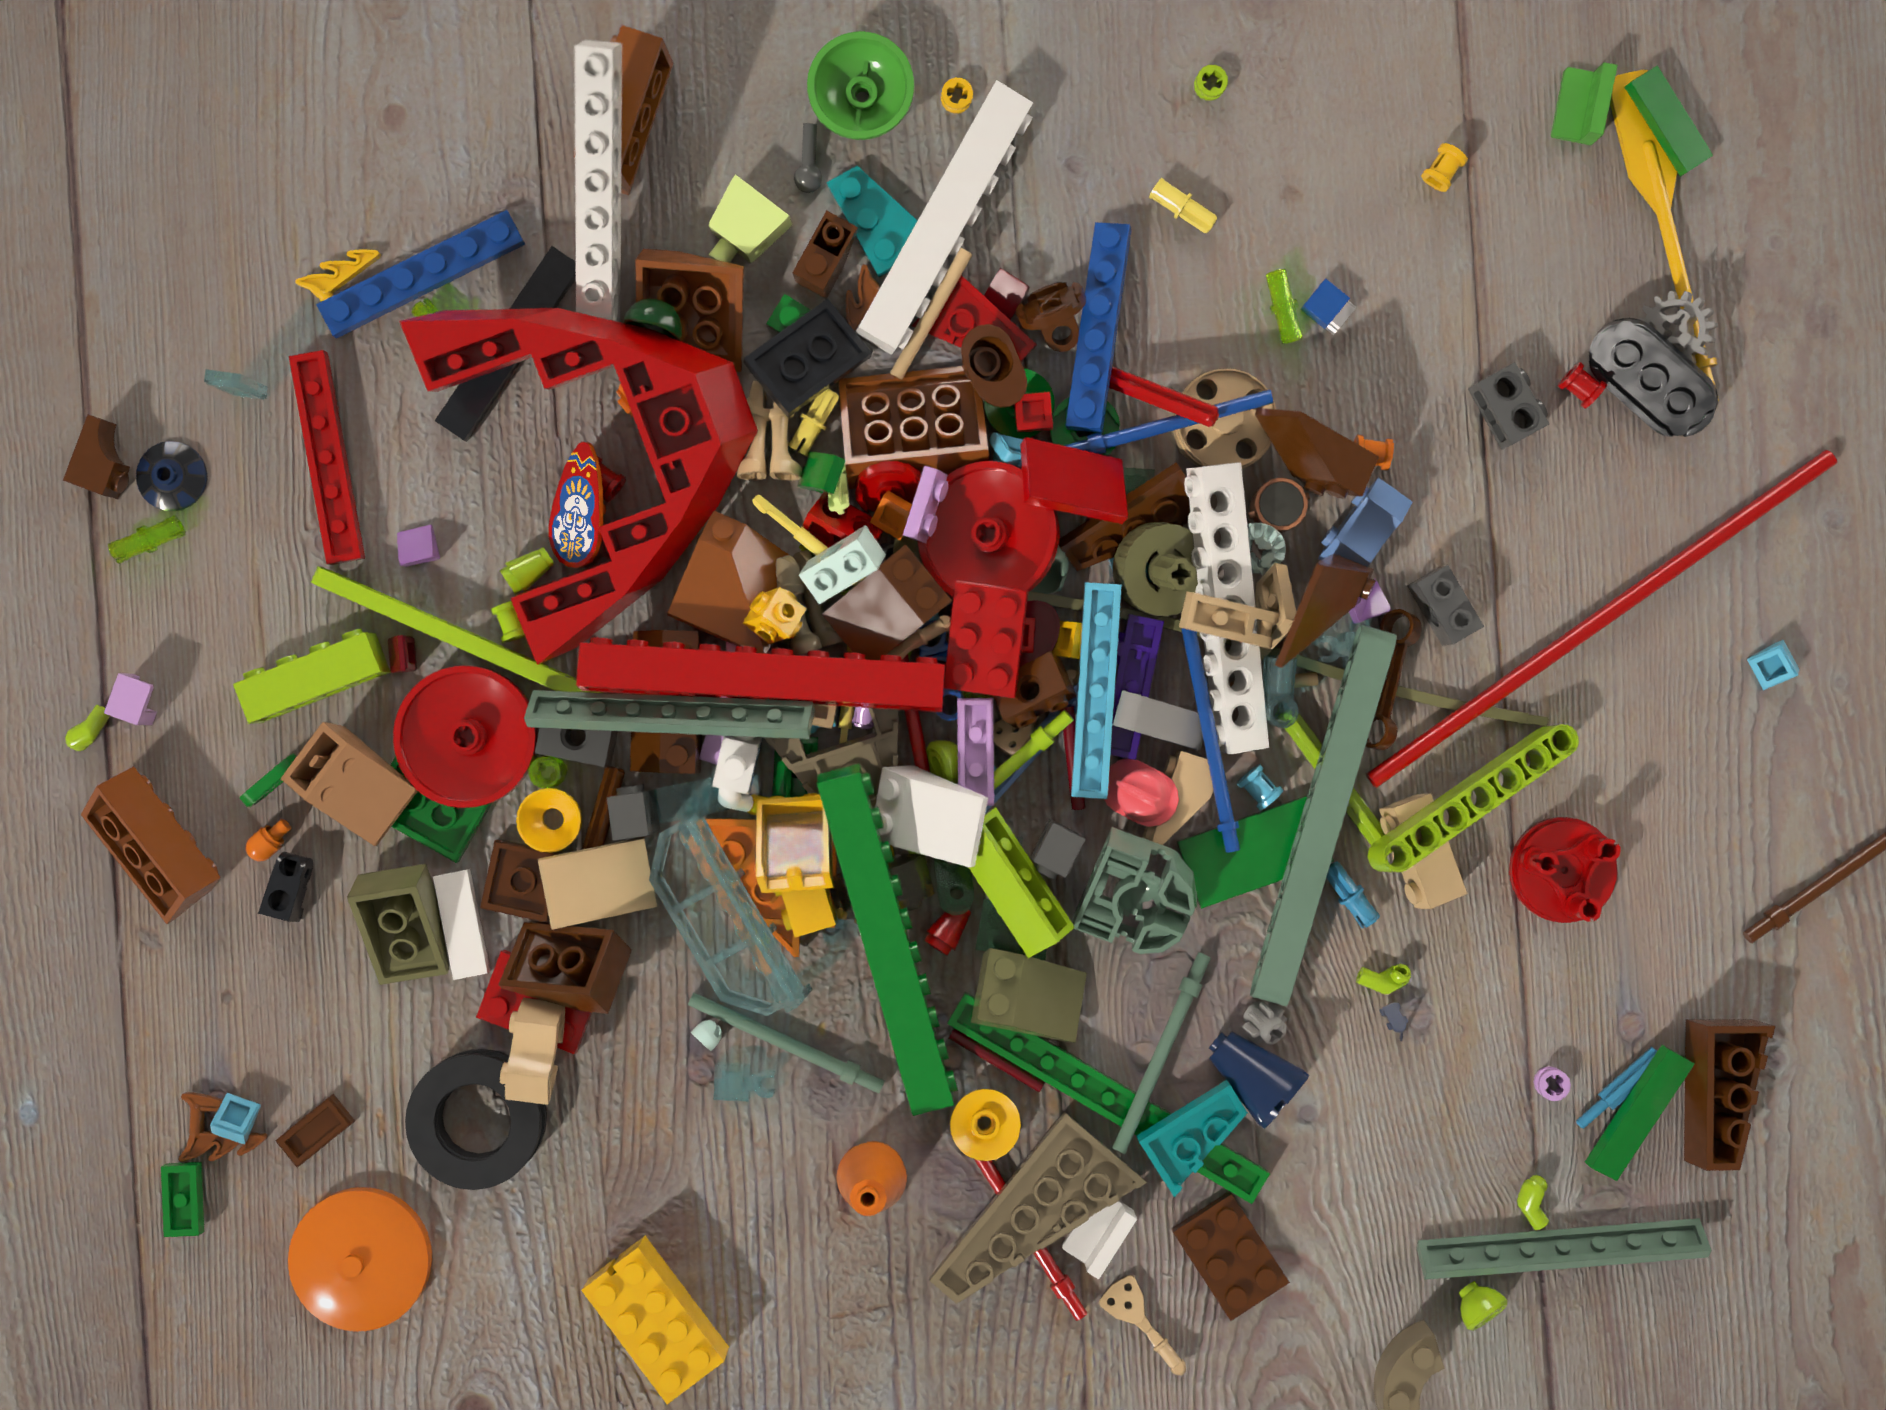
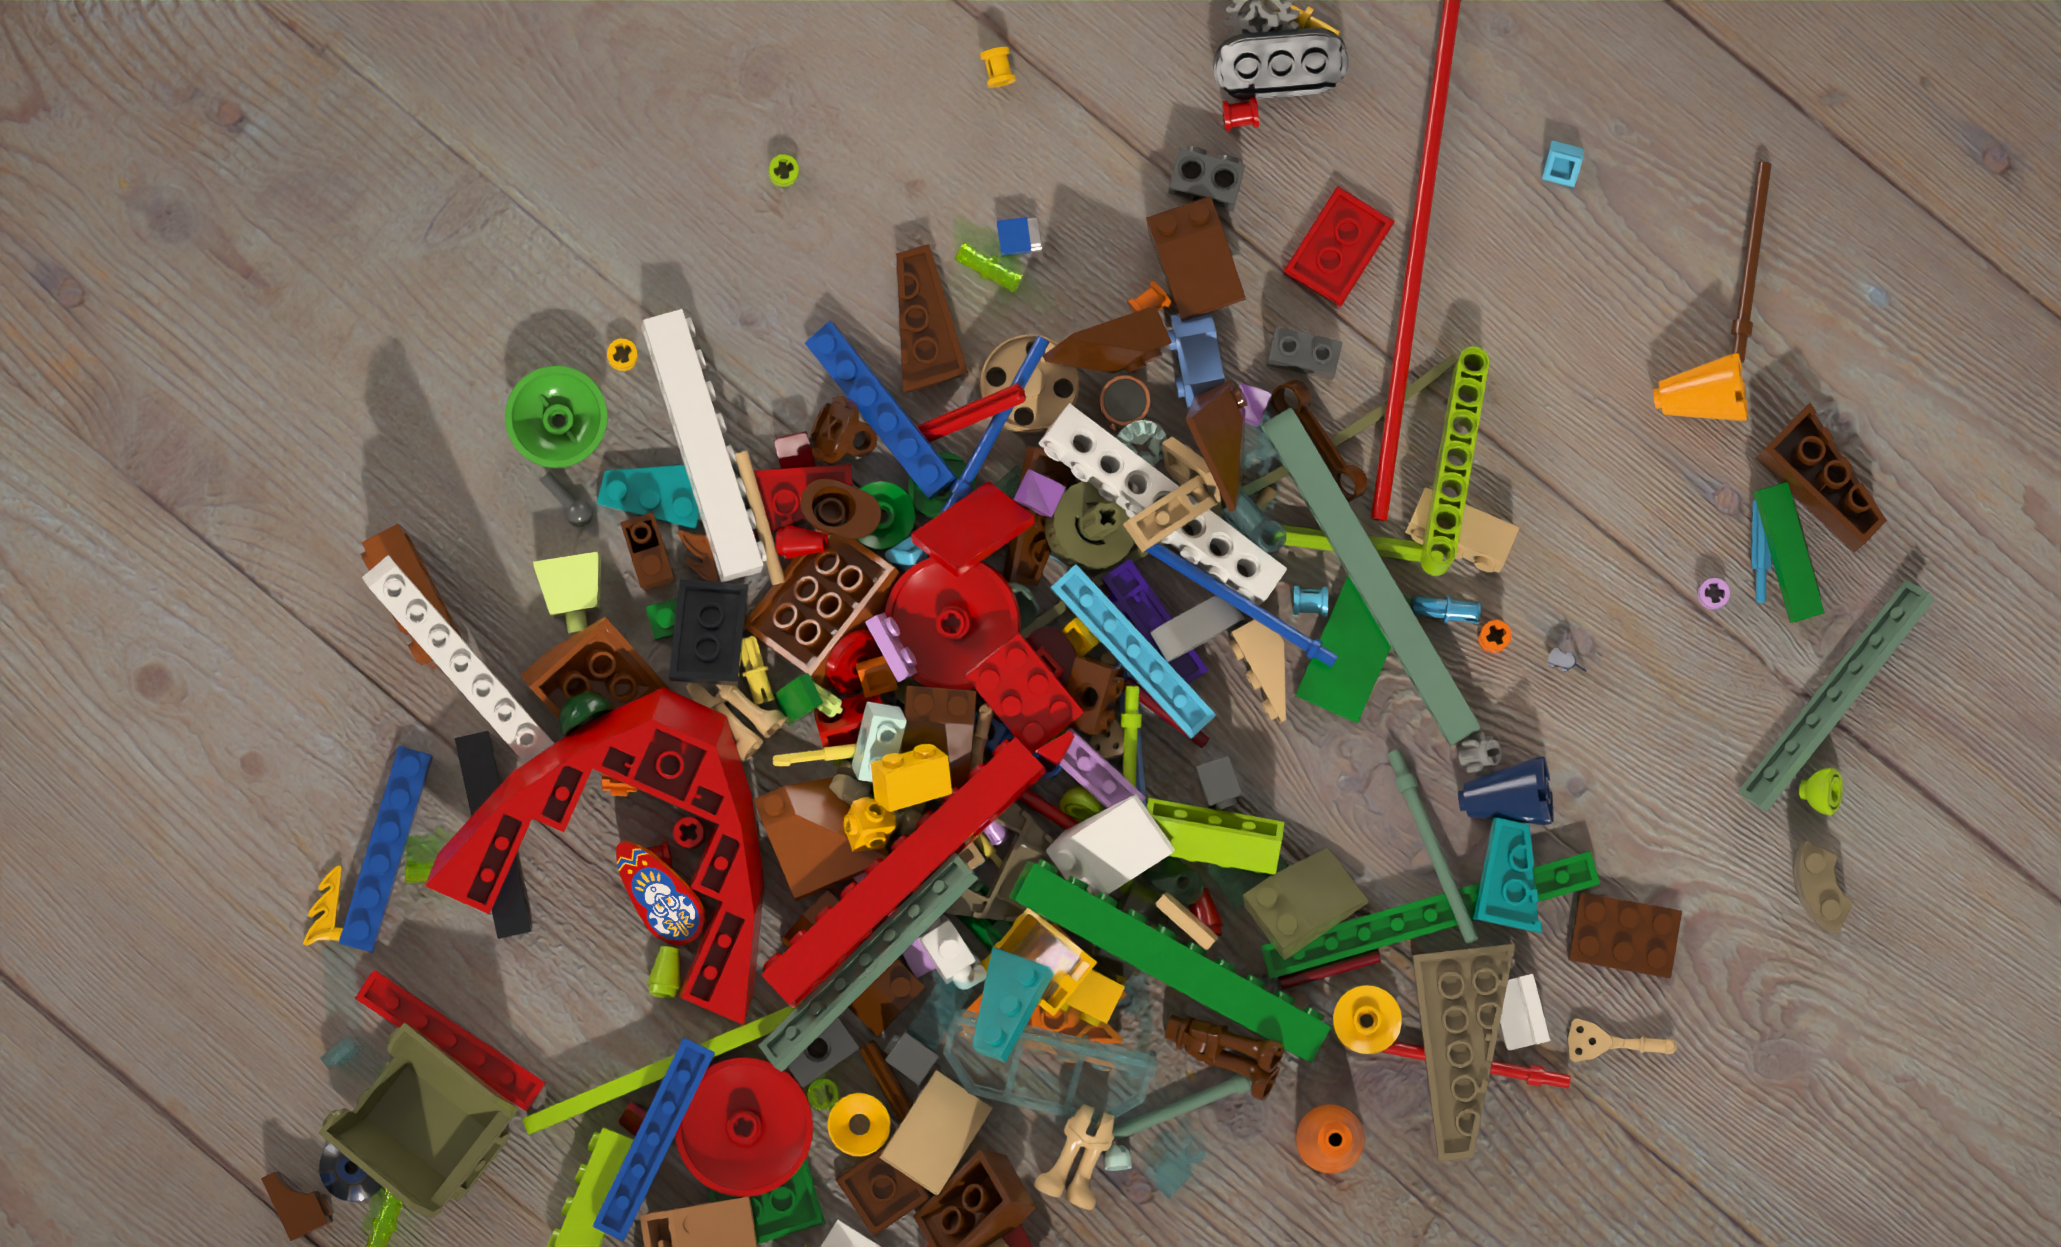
camera: 50 degrees left, 5 degrees down
(232, 496) = (422, 1125): none -> olive windscreen
(388, 678) = (653, 1139): none -> blue plate
(417, 546) = (573, 1036): medium lavender slope -> none
(508, 622) = (692, 1019): lime bush -> none
(638, 480) = (689, 822): none -> red bush
(653, 1030) = (1079, 1190): none -> tan piece
(735, 851) = (1007, 1002): none -> teal wing
(837, 614) = (911, 777): none -> yellow brick
(858, 1022) = (1208, 1041): none -> reddish brown piece
(930, 924) = (1186, 920): none -> tan tile
(940, 360) = (798, 542): none -> red cone
(965, 704) = (1056, 749): none -> red slope
(1034, 412) = (898, 511): red plate -> none
(1127, 859) = (1269, 740): sand green connector -> none
(1141, 793) = (1235, 688): coral piece -> none
(1149, 506) = (1039, 493): none -> medium lavender slope
(1183, 206) = (852, 271): light yellow axle -> none
(1191, 306) = (926, 328): none -> reddish brown wing
(1363, 940) = (1496, 625): none -> orange bush
(1385, 981) = (1532, 641): lime arm -> none
(1441, 454) = (1195, 258): none -> reddish brown slope
(1529, 1201) = (1781, 685): lime arm -> none
(1549, 555) = (1338, 246): none -> red tile
(1564, 870) = (1570, 444): red piece -> none
(1706, 938) = (1705, 391): none -> light orange cone

